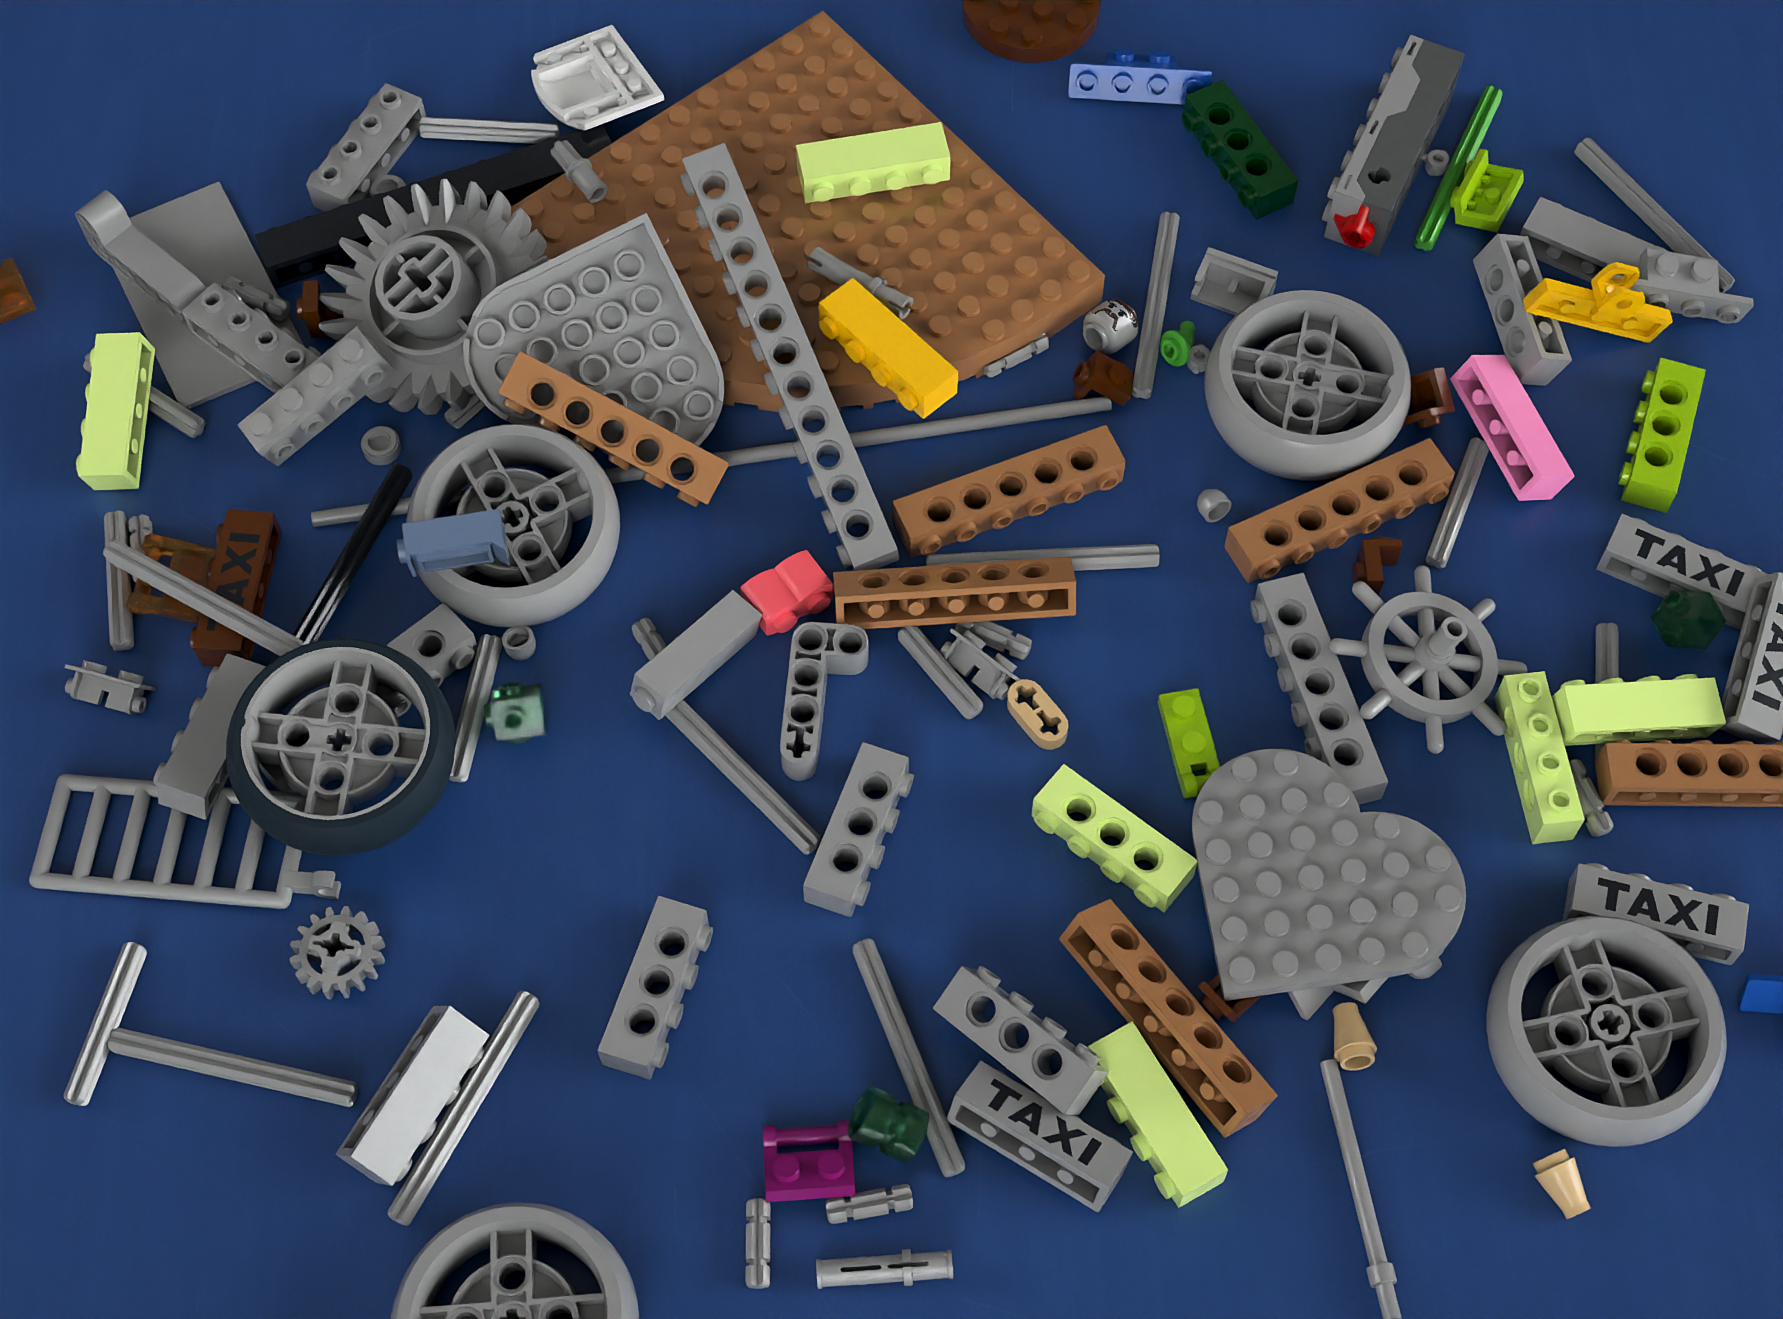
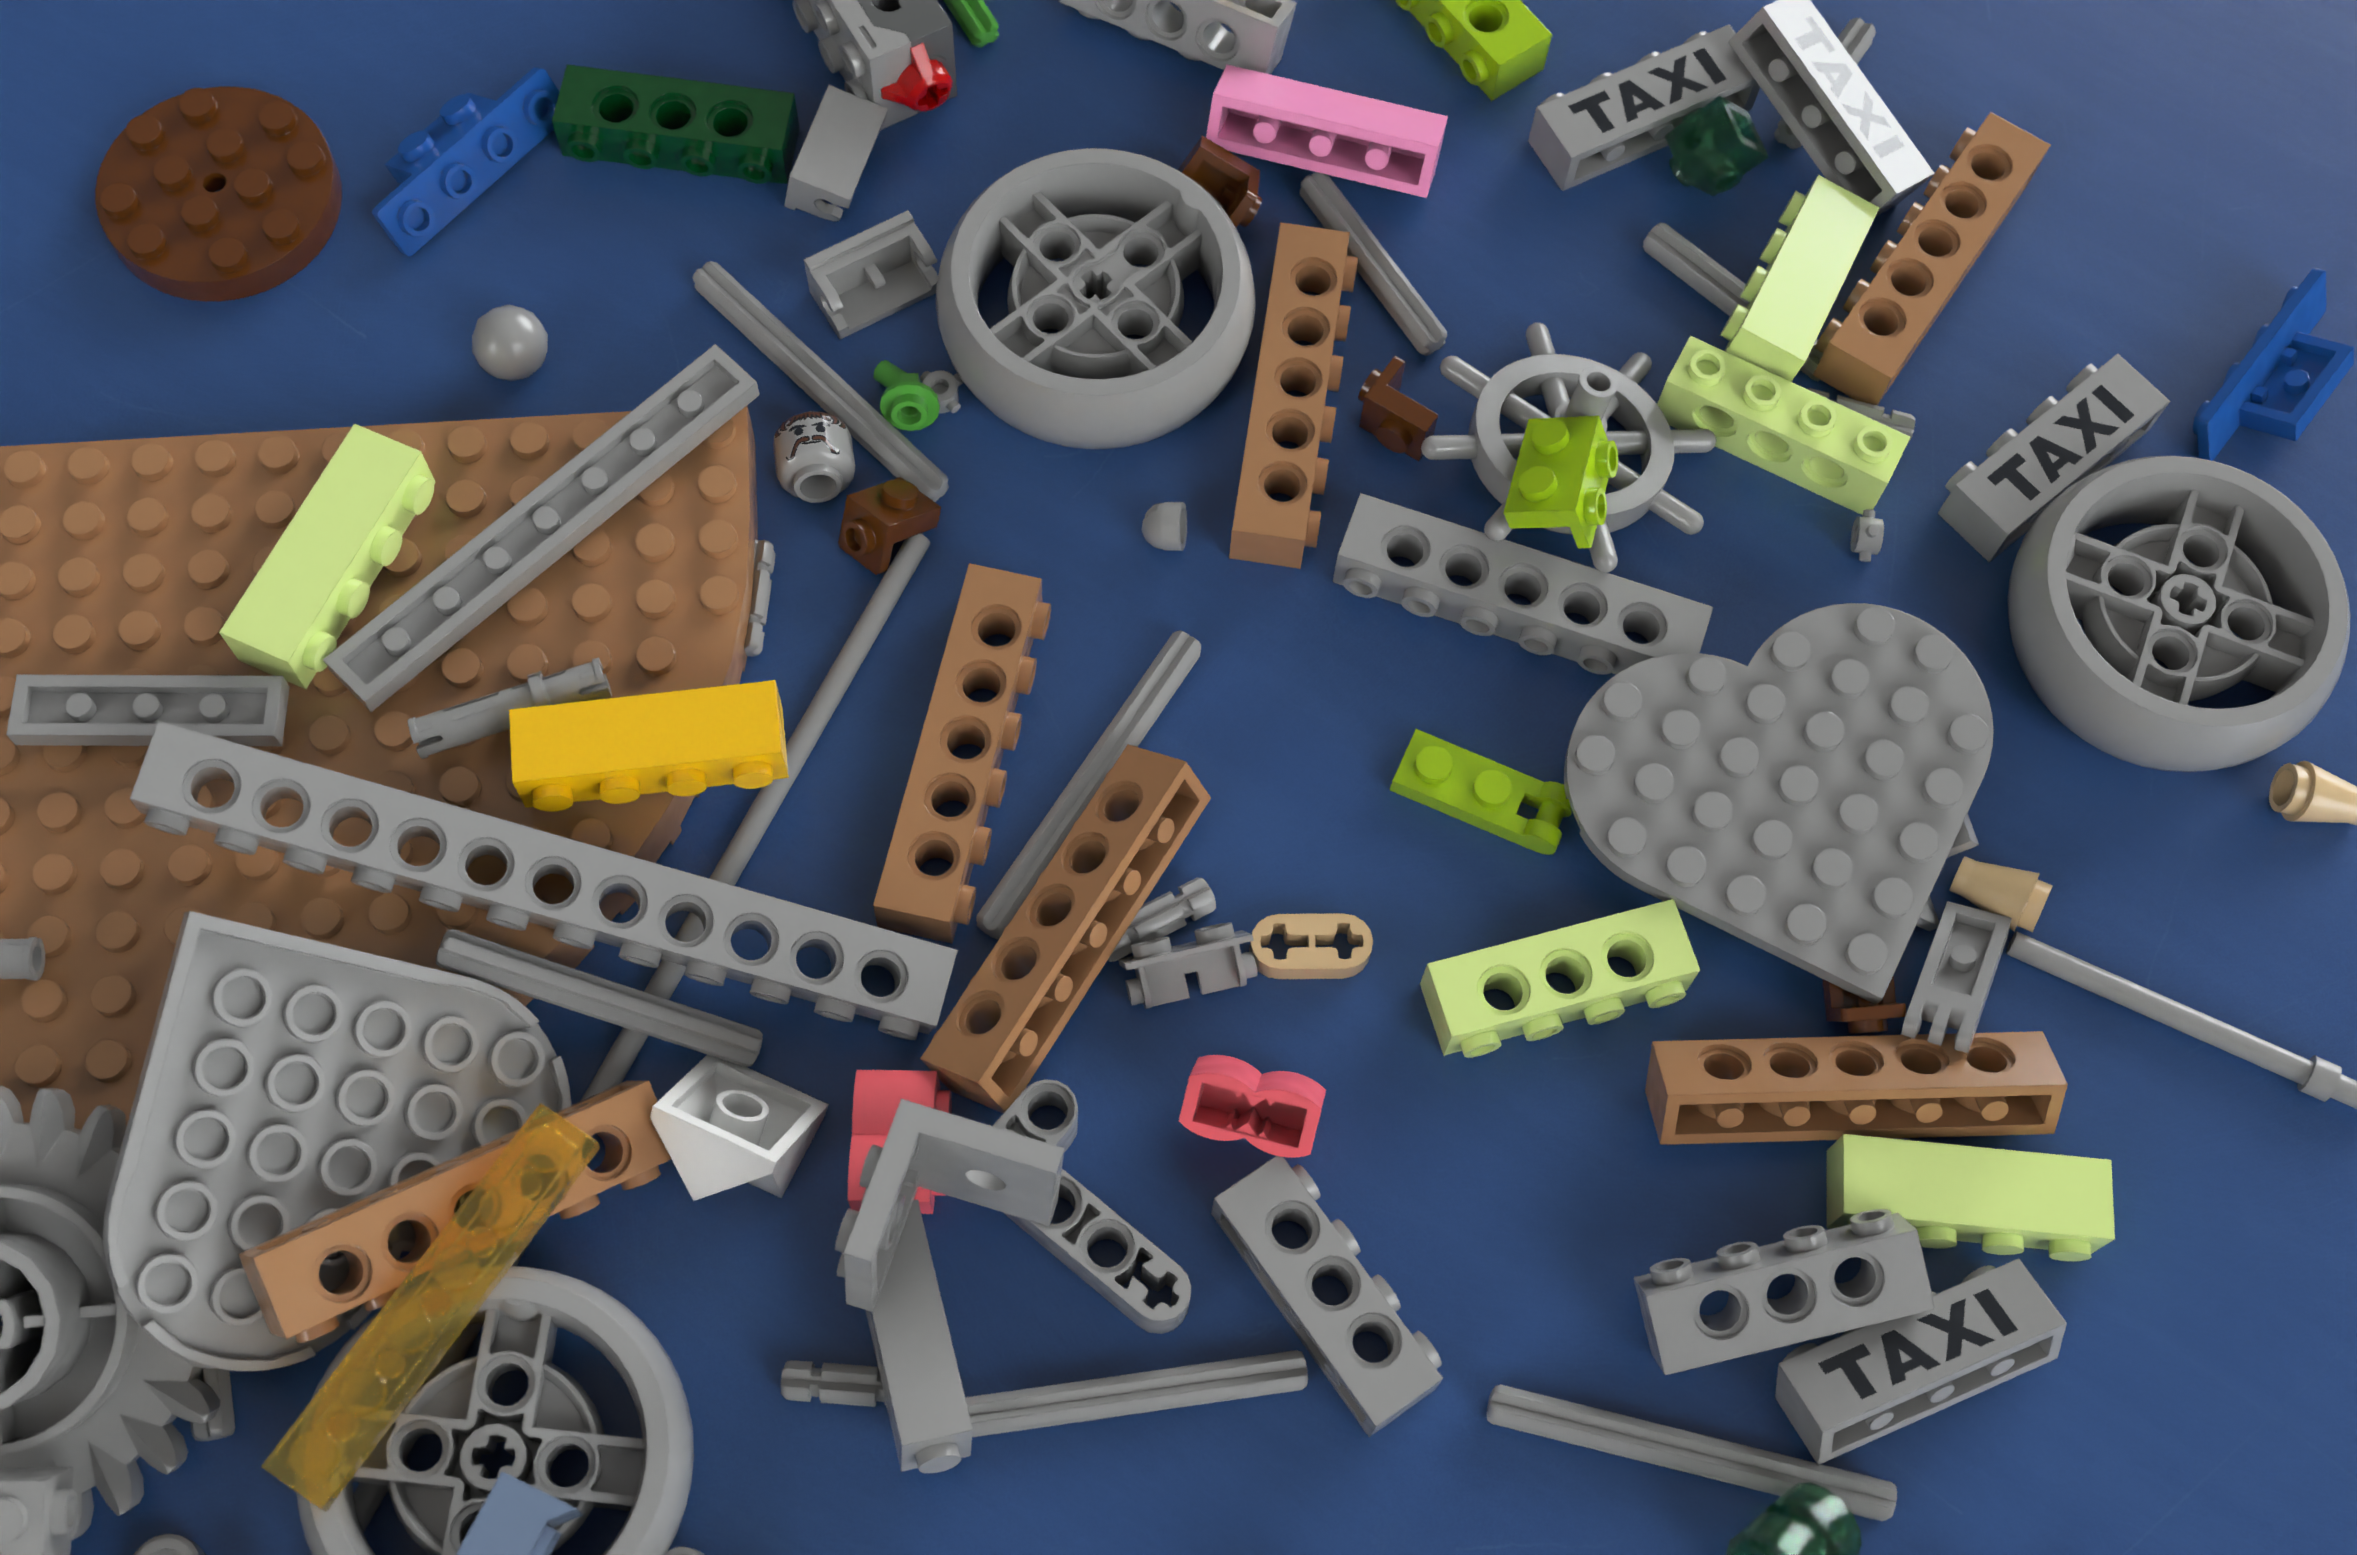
camera: 60 degrees left, 5 degrees up
(557, 440) = (431, 1308): none -> clear yellow plate
(743, 519) = (735, 1128): none -> white slope
(750, 157) = (128, 707): none -> light grey plate
(752, 587) = (947, 1157): none -> light grey bracket
(755, 421) = (598, 998): none -> light grey axle
(925, 732) = (1236, 1101): none -> coral brick
(940, 671) = (1160, 1023): light grey axle -> none
(964, 233) = (541, 528): none -> light grey plate
(1056, 164) = (509, 343): none -> light grey piece
(1275, 1034) = (1957, 974): none -> light grey hinge
(1285, 221) = (834, 154): none -> light grey hinge
(1390, 654) = (1562, 476): none -> lime bracket
(1515, 845) = (1867, 535): none -> light grey piece

